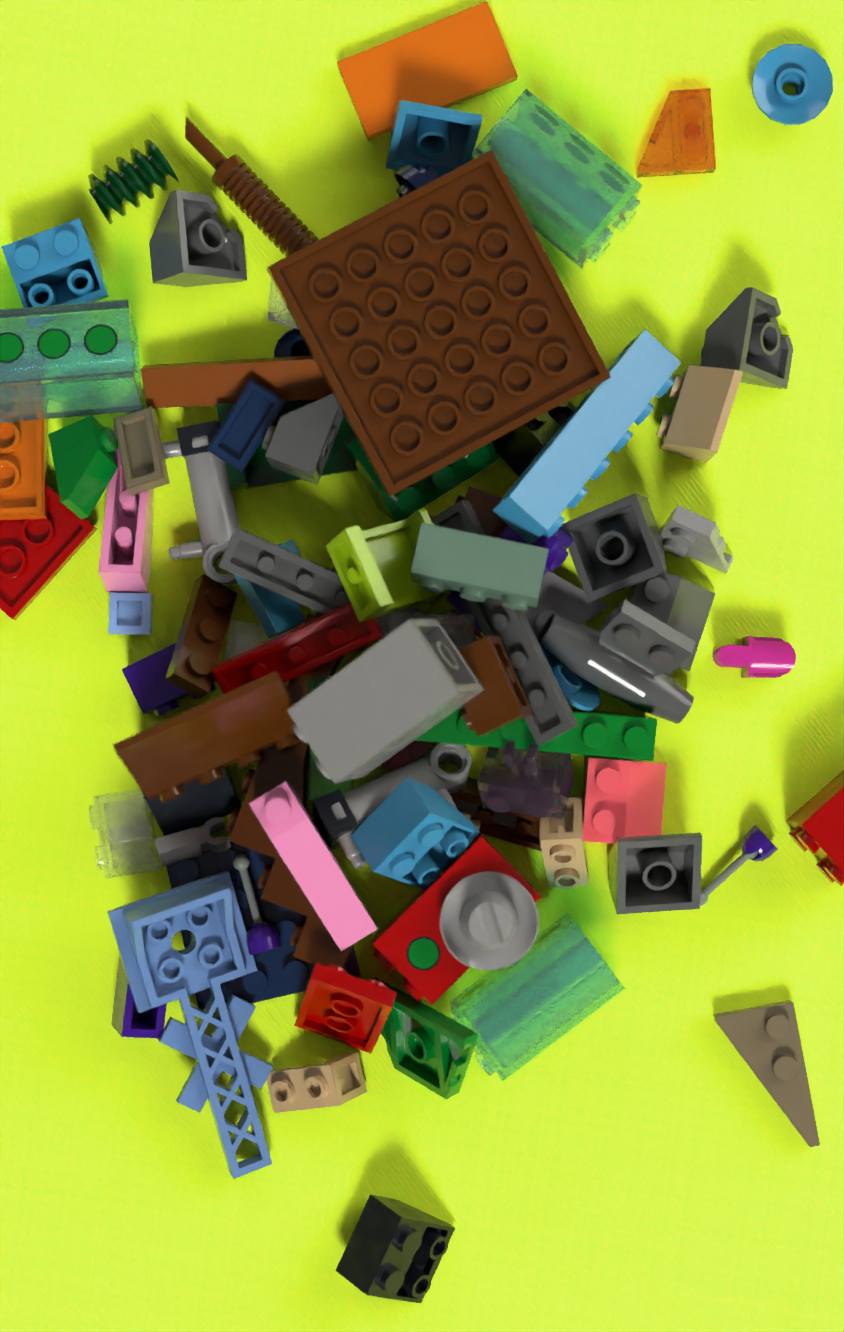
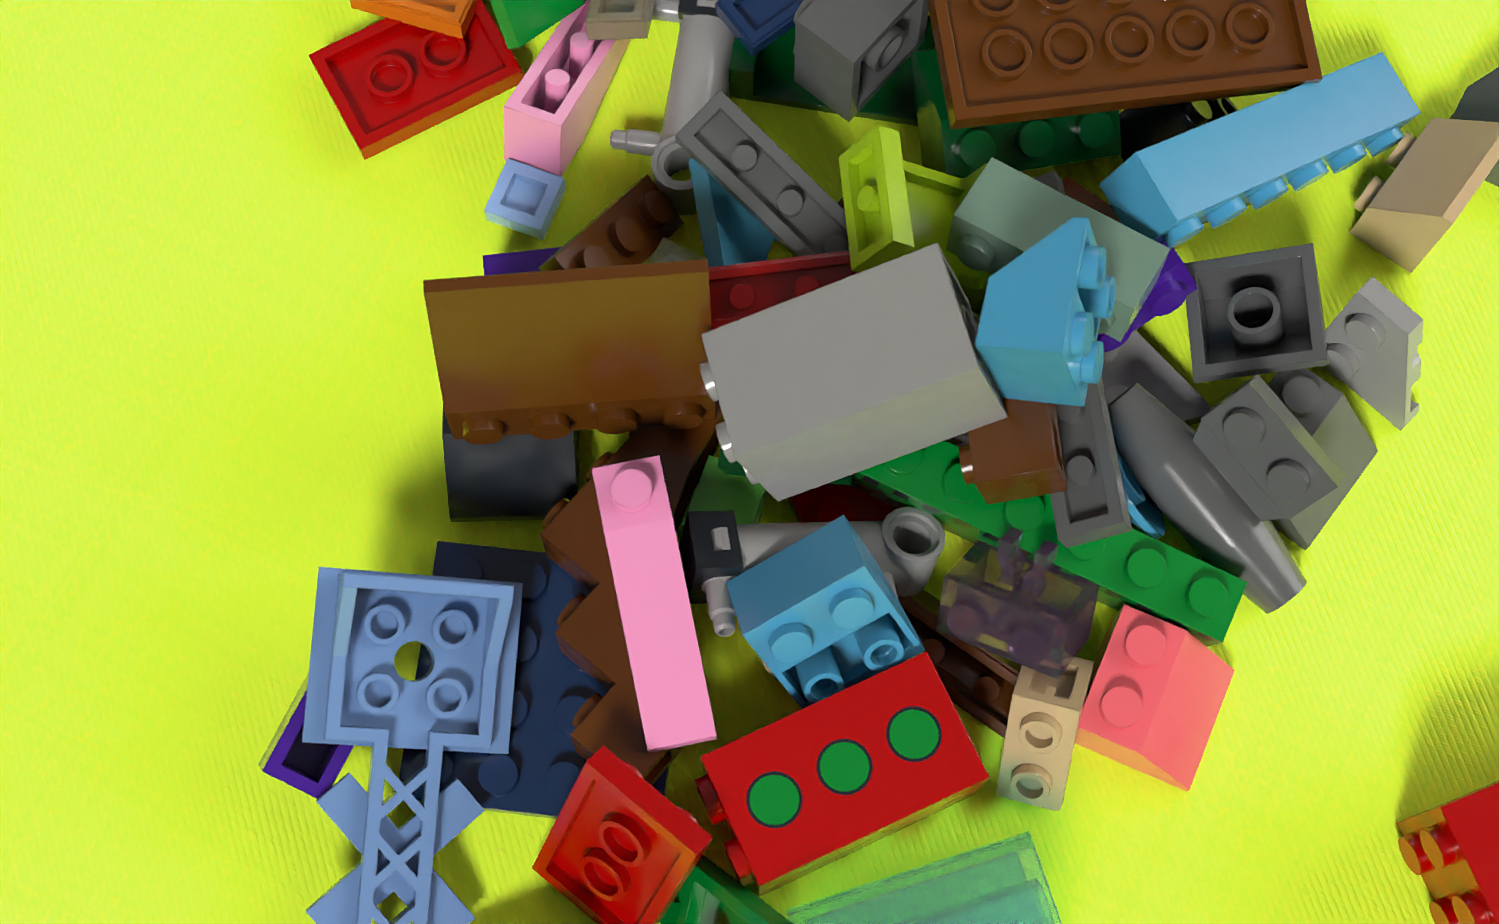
camera: 20 degrees right, 15 degrees down
(124, 834) = (393, 490): clear brick -> none
(192, 842) = (484, 532): light grey bar -> none
(261, 935) = (534, 703): hinge -> none
(489, 921) = (896, 781): light grey hat -> none
(490, 635) = (1046, 318): none -> dark azure slope
(656, 873) = (1179, 811): dark grey slope -> none
(754, 847) = (1340, 841): hinge -> none
(757, 657) = (1418, 555): dark pink arm -> none

